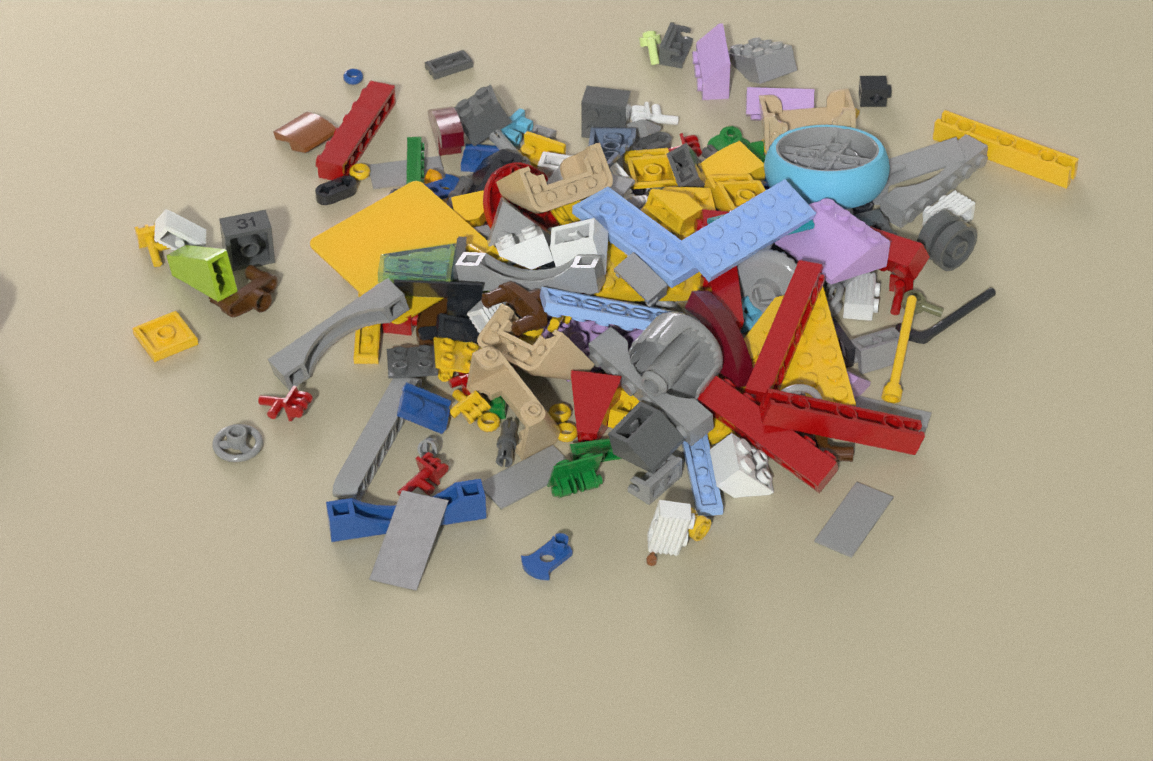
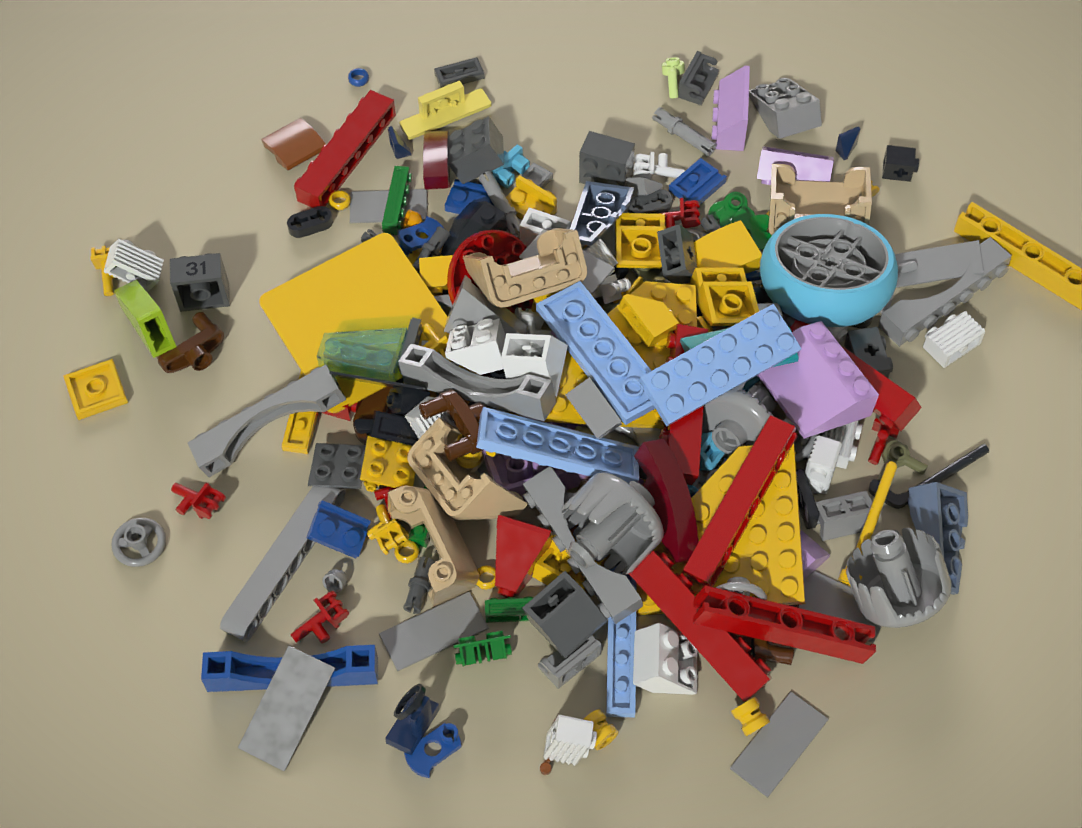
camera: 10 degrees right, 15 degrees up
(404, 123) = (397, 144): none -> dark blue slope
(442, 89) = (443, 108): none -> light yellow bracket
(528, 531) = (413, 720): none -> dark blue piece
(560, 407) = (484, 541): yellow piece -> none
(662, 83) = (676, 126): none -> light grey pin
(692, 122) = (697, 182): none -> blue plate
(823, 80) = (847, 142): none -> dark blue slope
(824, 497) = (750, 716): none -> yellow wheel
(850, 309) = (822, 464): none -> white brick
(935, 378) = (901, 578): none -> light grey piece
(947, 240) = (945, 380): dark grey wheel -> none
(963, 345) = (942, 514): none -> sand blue wedge

